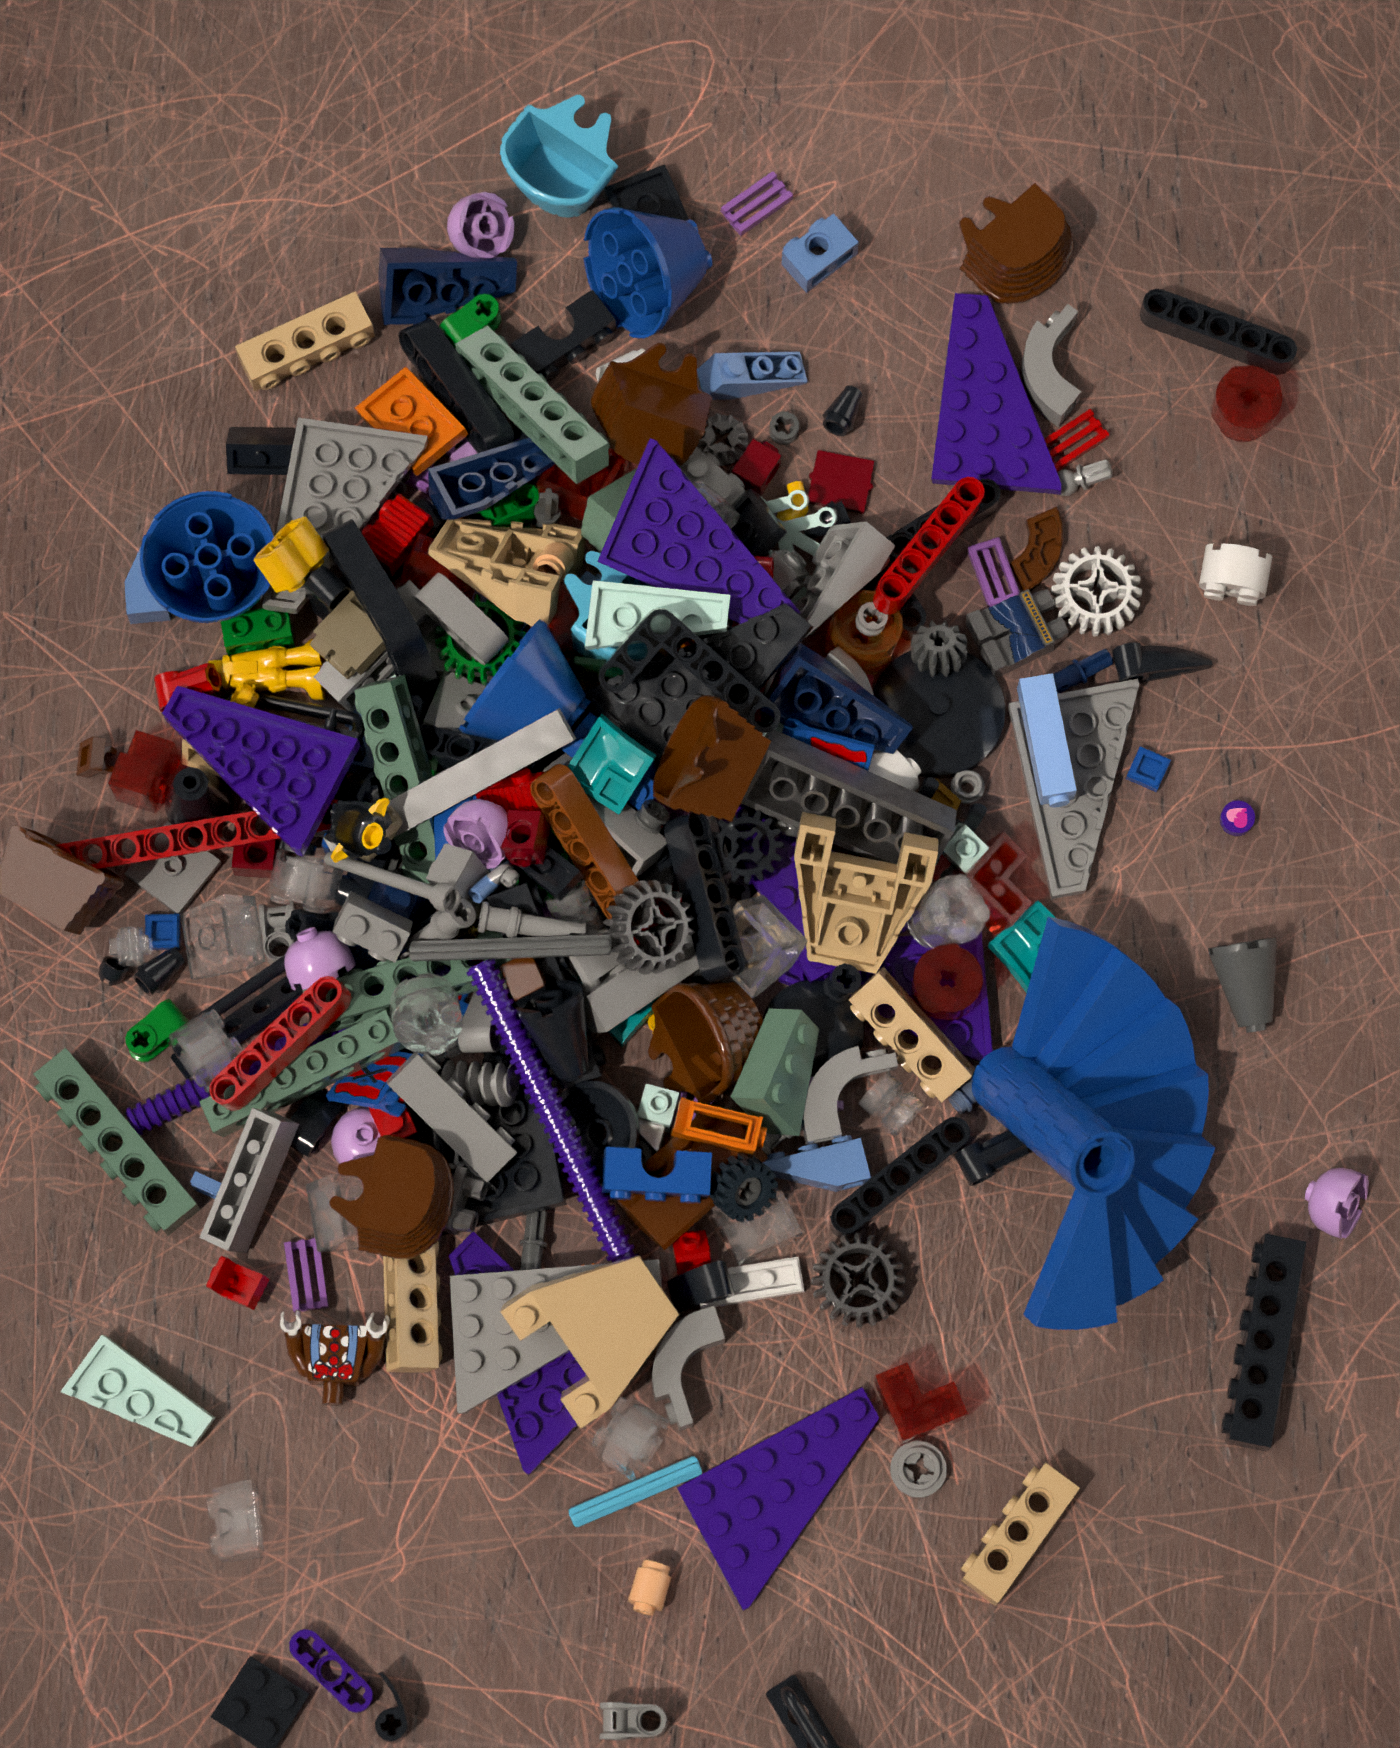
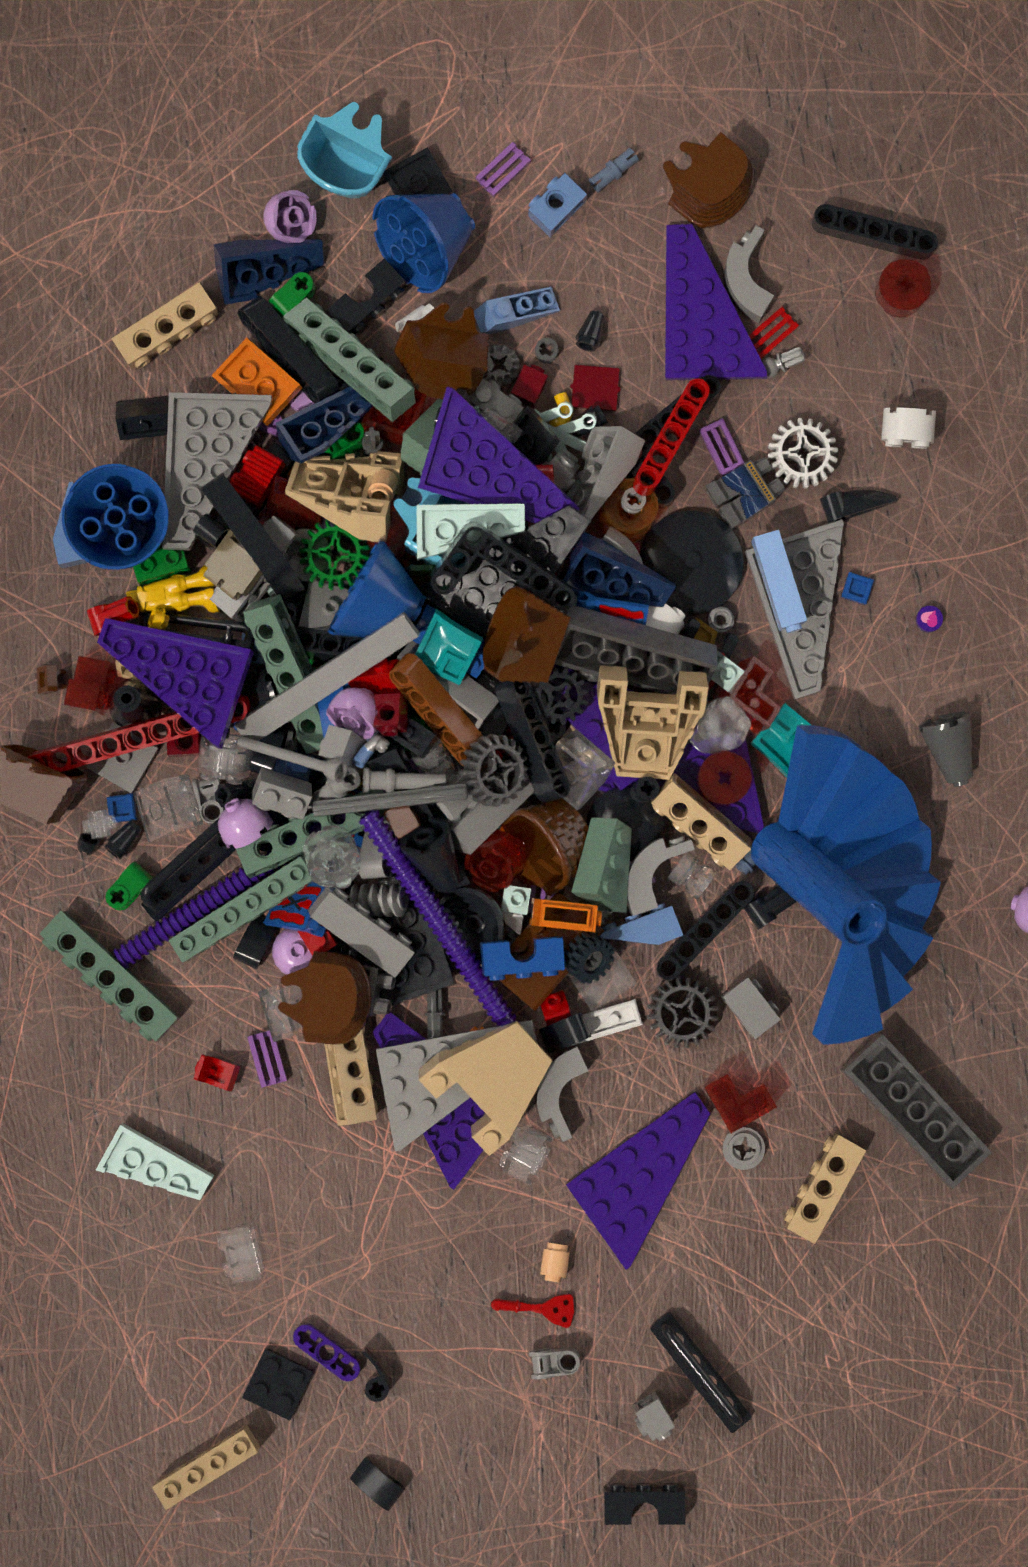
camera: 10 degrees left, 10 degrees up
(205, 1047) = (169, 903): clear brick -> none
(205, 1185) = (185, 1002): medium blue tile -> none
(249, 1180) = (214, 996): light grey brick -> none
(263, 1046) = (212, 896): red beam -> none
(291, 555) = (179, 508): yellow brick -> none
(334, 1353) = (296, 1117): torso -> none
(363, 829) = (265, 720): black hair -> none
(461, 619) = (318, 544): light grey beam -> none
(628, 1649) = (545, 1308): none -> red piece
(635, 1491) = (535, 1191): medium azure axle -> none
(638, 1049) = (496, 861): none -> clear red brick
(652, 816) = (484, 682): dark grey bush -> none
(896, 219) = (613, 170): none -> sand blue pin
(939, 648) = (687, 515): dark grey gear -> none
(949, 1283) = (751, 1007): none -> light grey brick
(1042, 549) = (757, 424): reddish brown tile -> none
(1080, 671) = (797, 517): dark blue axle -> none
(1151, 1444) = (915, 1110): none -> flat silver brick
(1289, 1257) = (999, 1035): black brick -> none

